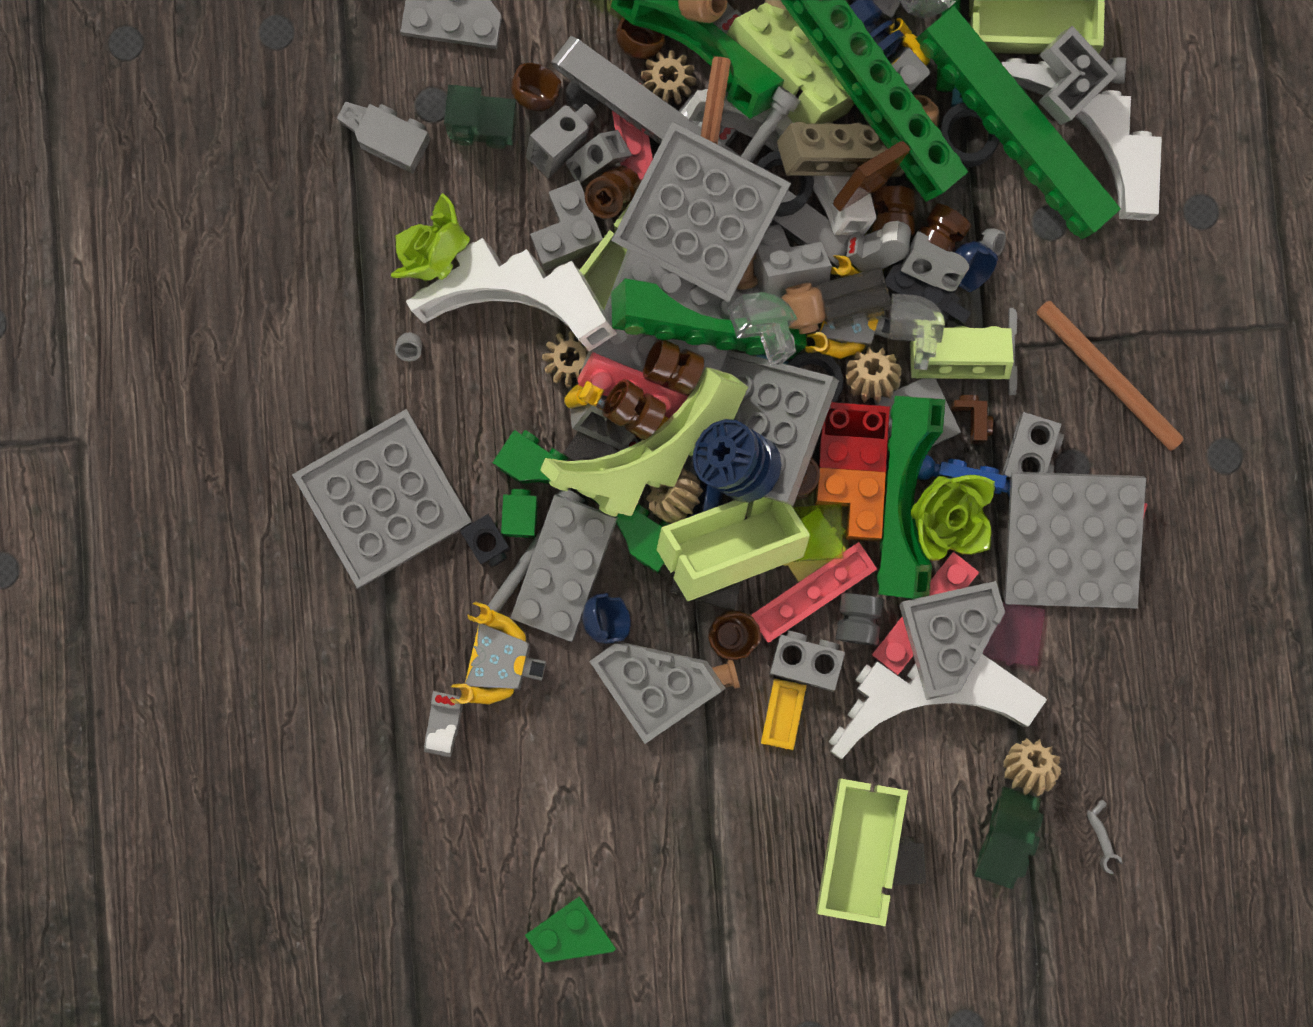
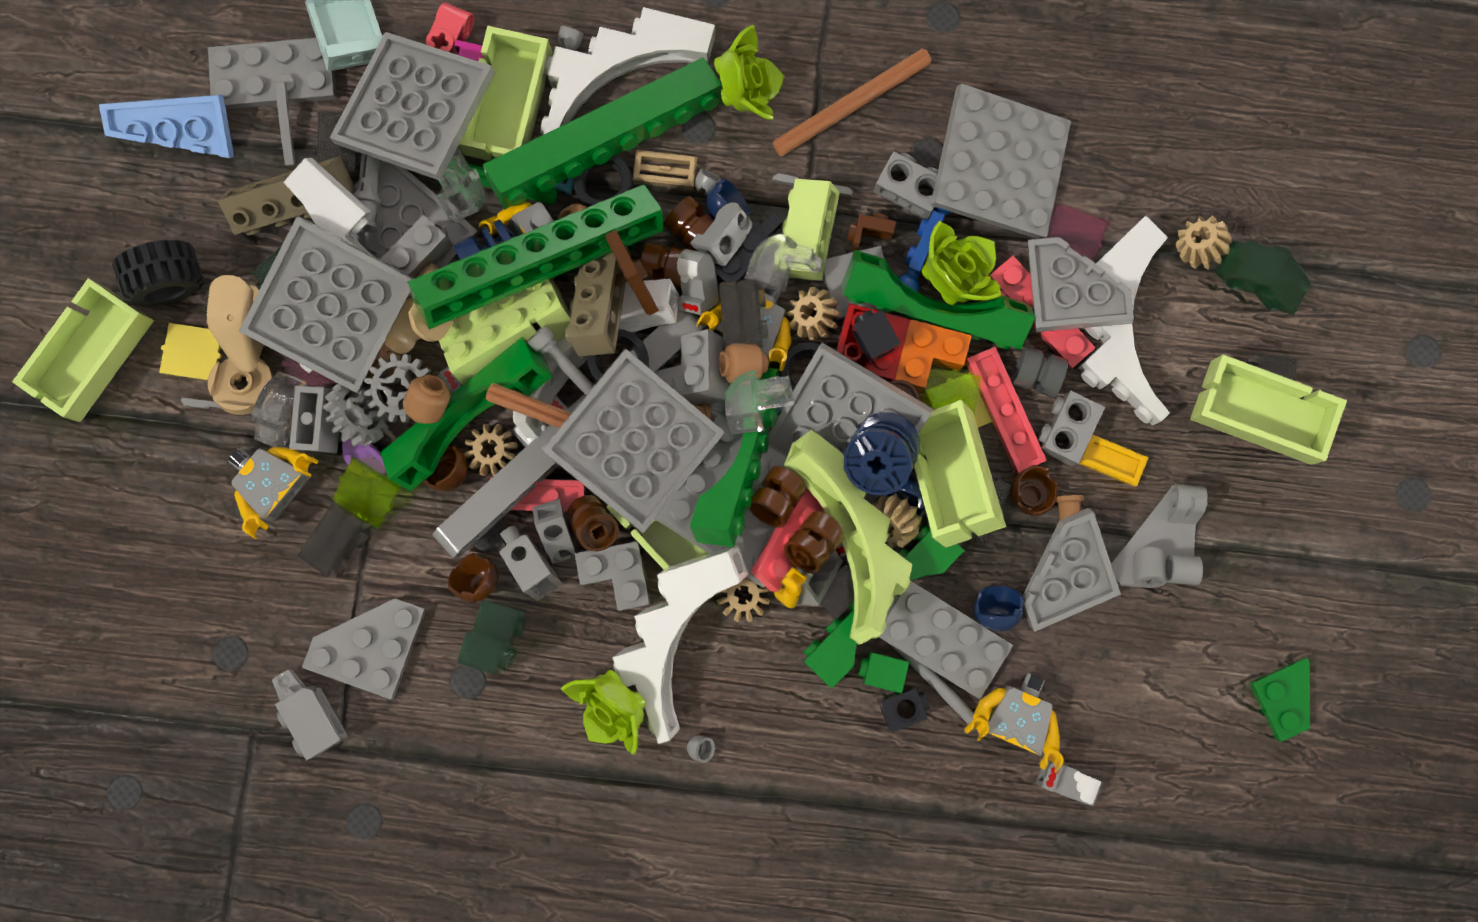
camera: 80 degrees left, 0 degrees up
(382, 499) = (843, 802): light grey plate -> none
(386, 135) = (489, 733): light grey hinge -> none
(704, 782) = (1165, 542): none -> light grey panel
(858, 434) = (874, 335): none -> black brick
(998, 223) = (660, 180): none -> tan tile
(1081, 75) = (575, 62): light grey brick -> none
(1103, 837) = (1264, 195): light grey piece -> none
(1109, 260) = (747, 79): none -> lime brick

